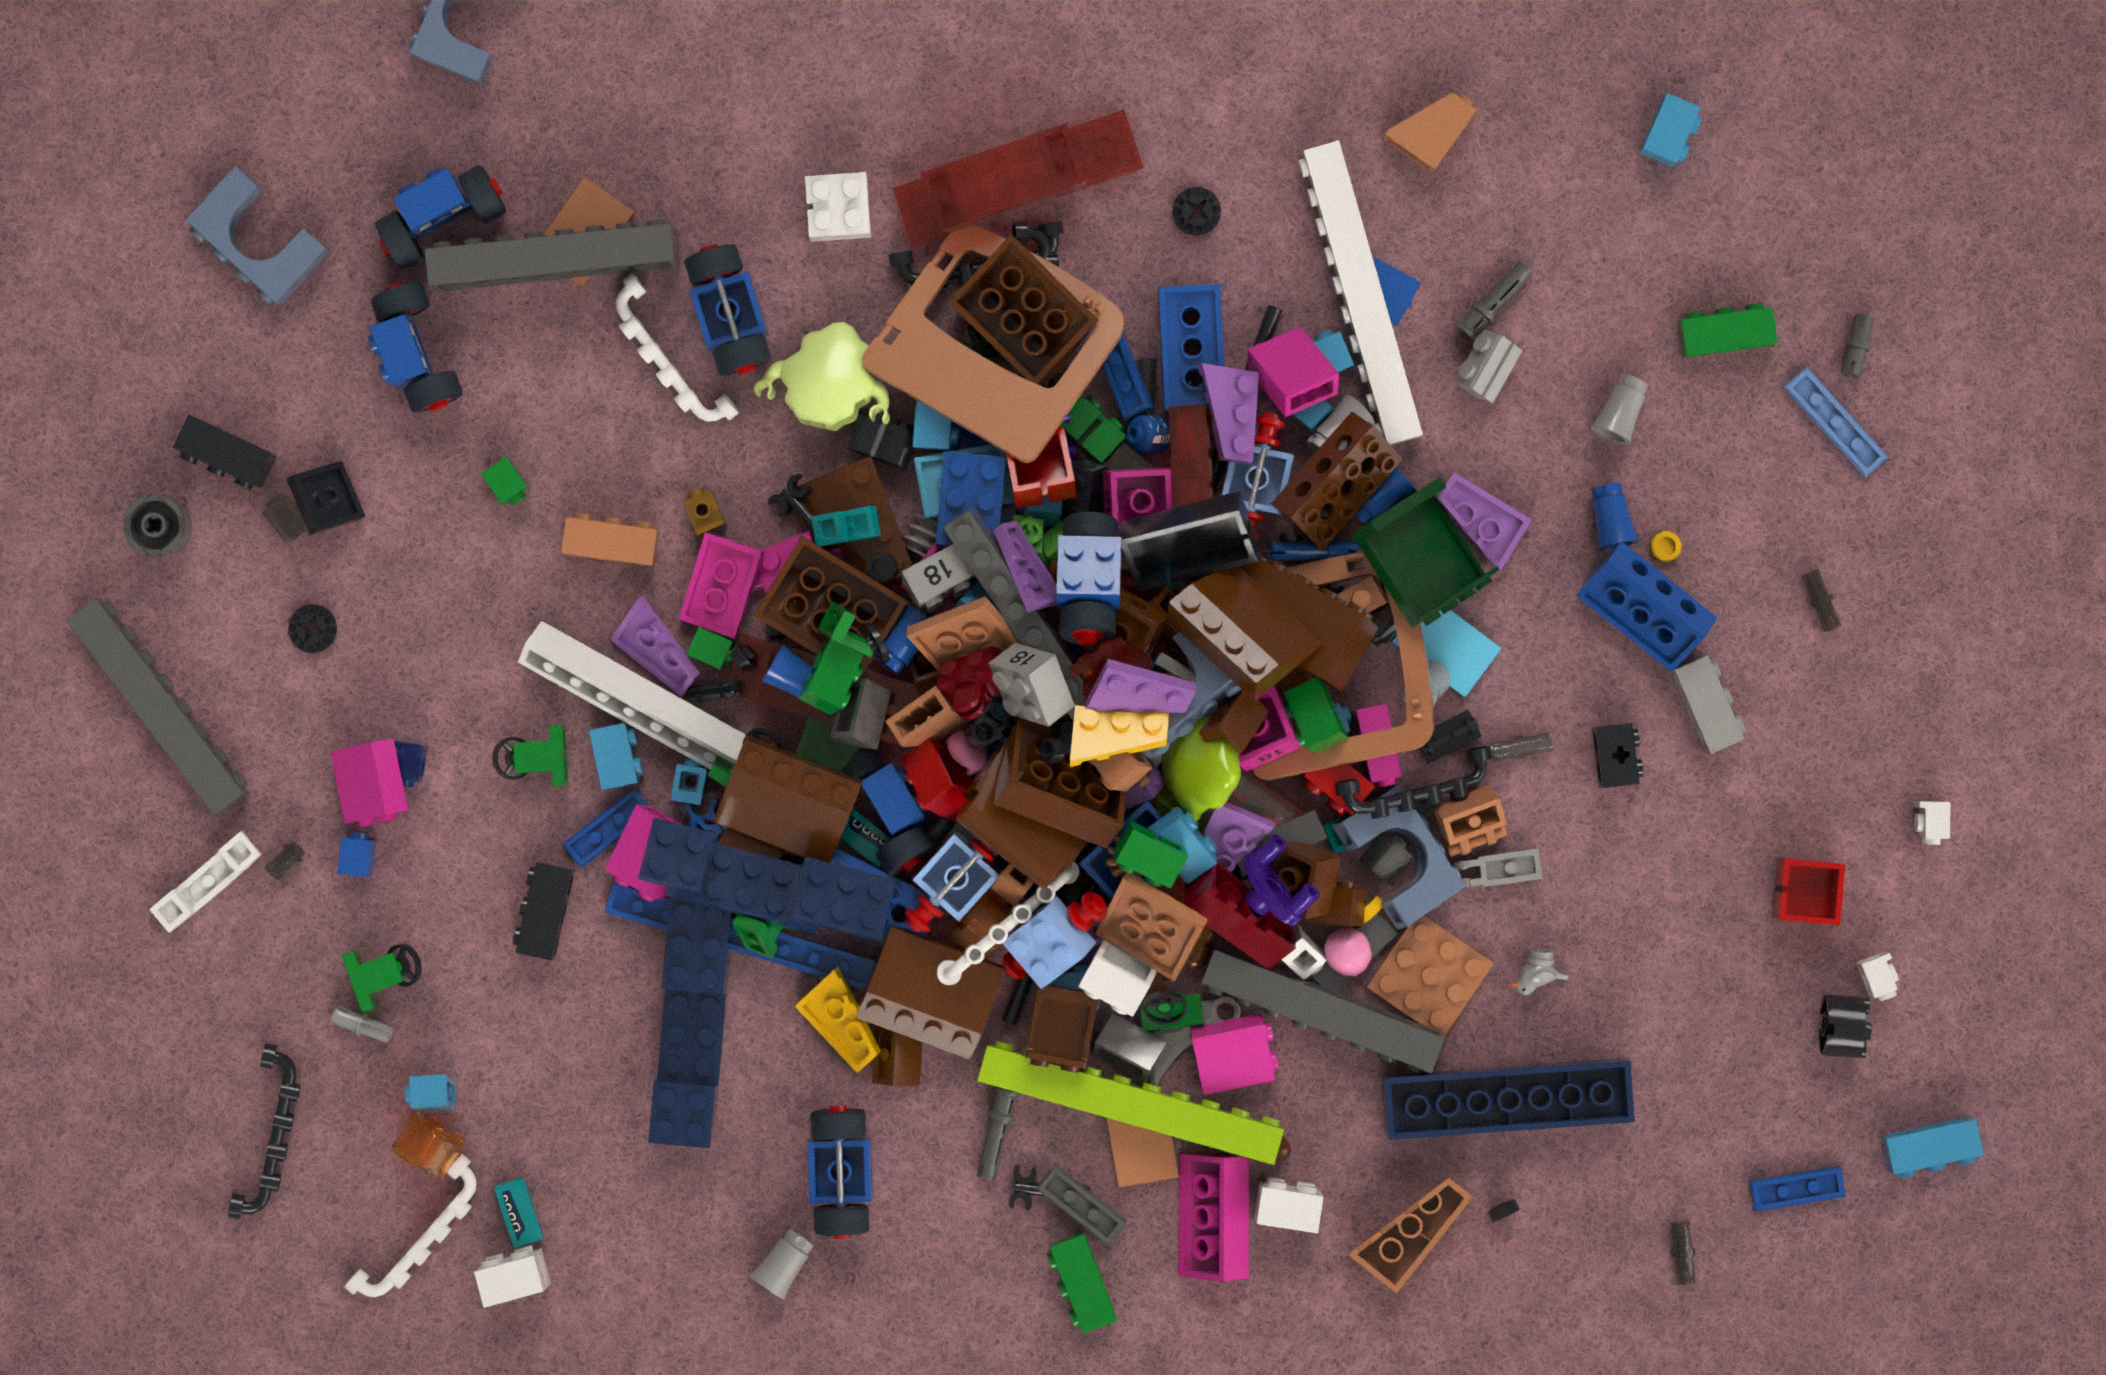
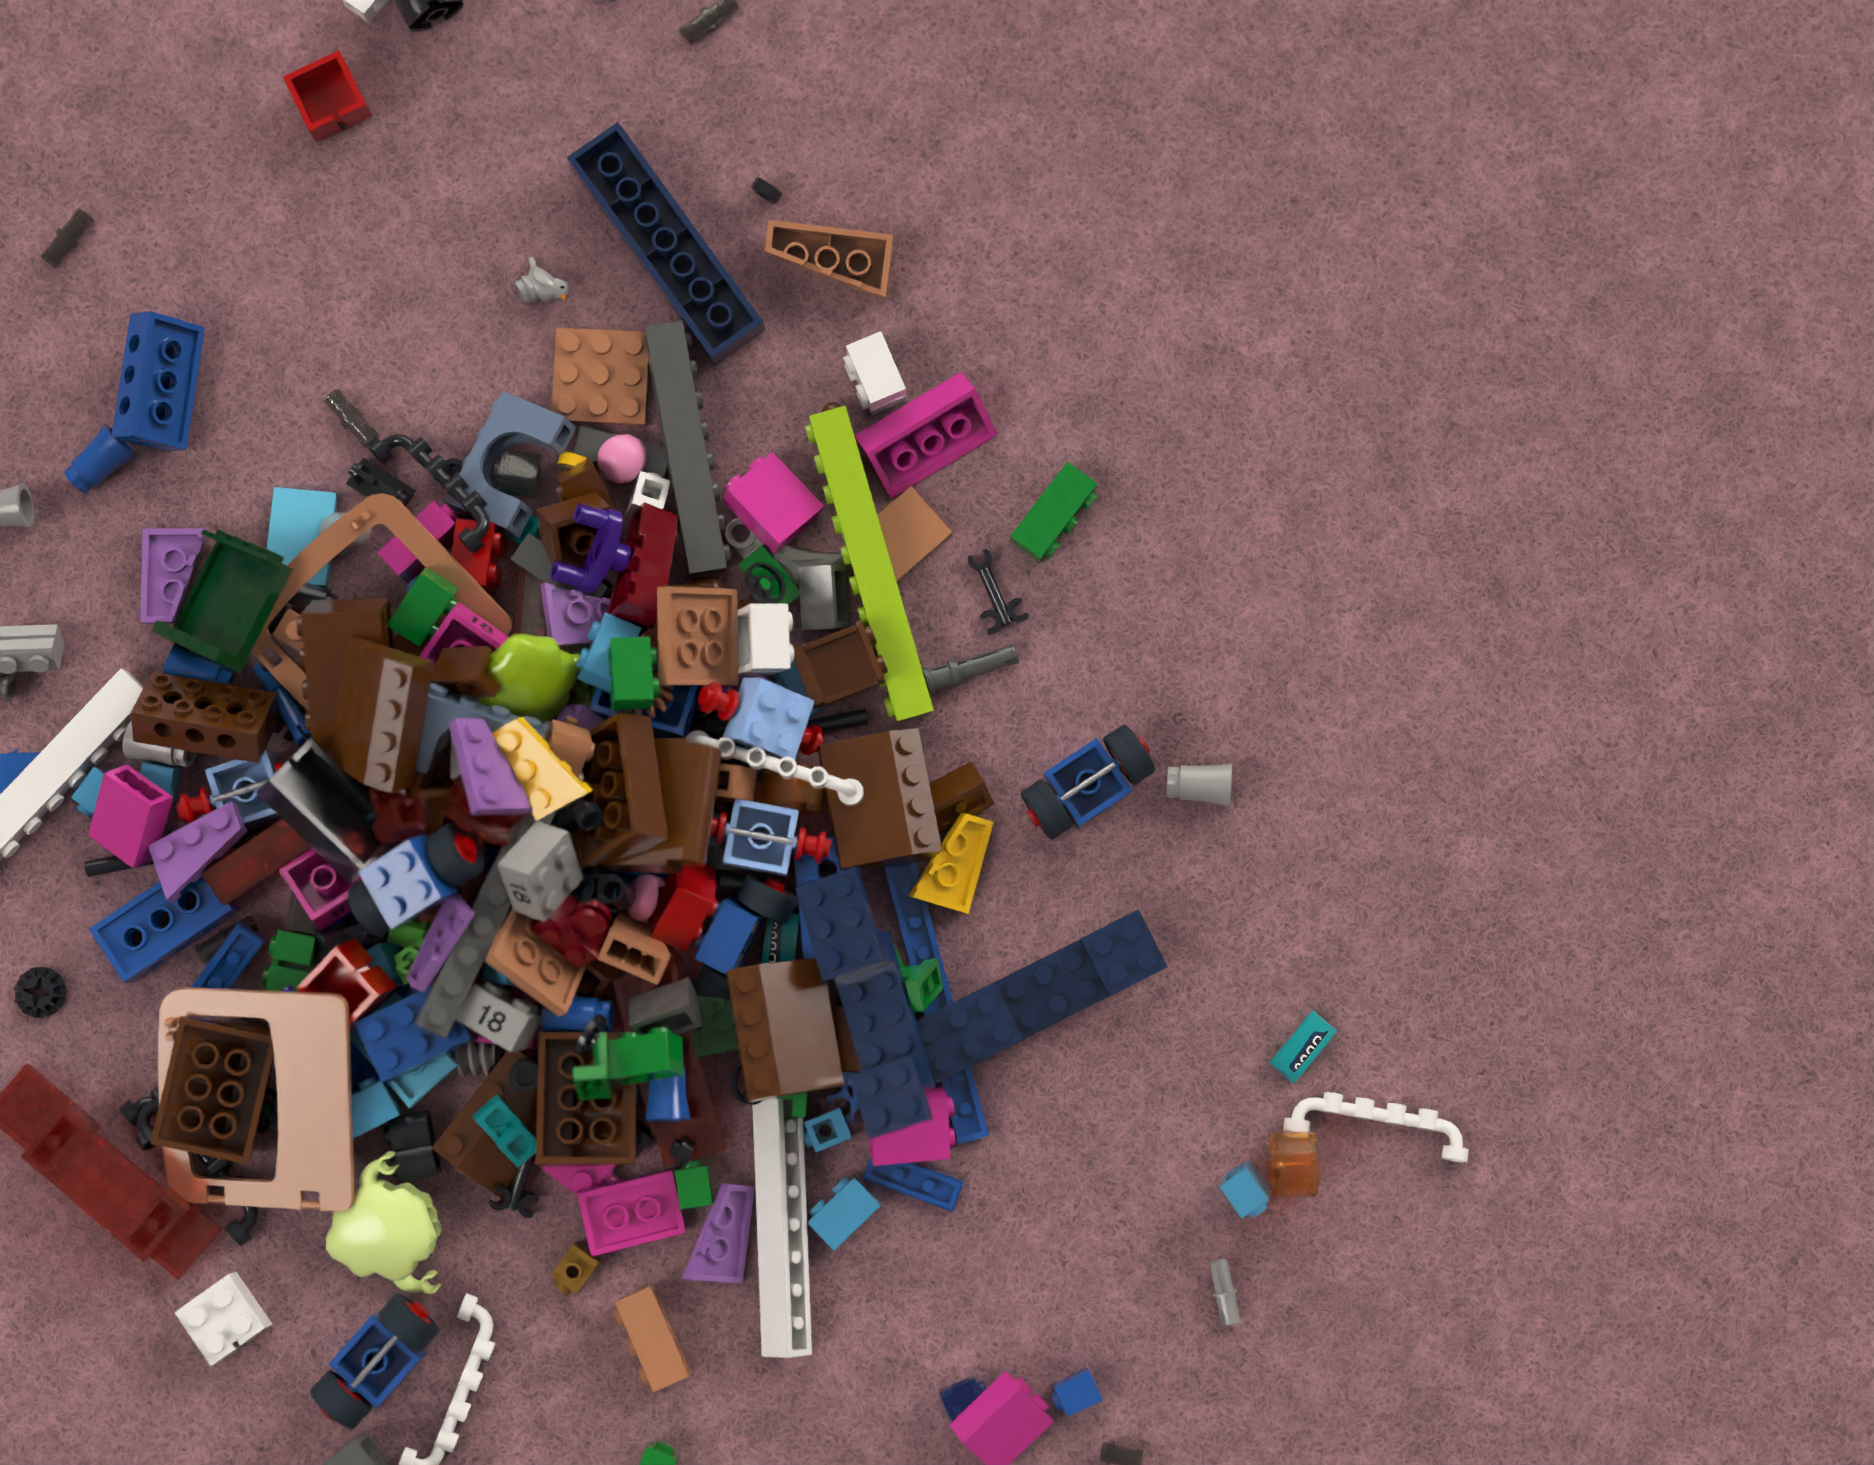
camera: 120 degrees left, 5 degrees down
(276, 1149) = (1383, 1300): black bar -> none
(380, 973) = (1167, 1304): green piece -> none
(512, 1277) = (1362, 1016): white piece -> none
(535, 756) = (888, 1285): green piece -> none
(543, 910) = (1021, 1191): black brick -> none
(714, 691) = (730, 1159): black axle -> none
(1081, 1204) = (986, 554): dark grey tile -> none
(1148, 434) = (265, 910): blue head -> none
(1148, 593) = (397, 816): none -> clear red brick
(1471, 821) = (441, 421): nougat brick -> none
(1503, 868) = (466, 368): light grey hinge -> none
(1605, 743) = (296, 343): black brick -> none
(1665, 546) = (99, 400): yellow tile -> none
(1708, 704) = (216, 279): light grey brick -> none
(1932, 821) = (203, 29): white brick -> none

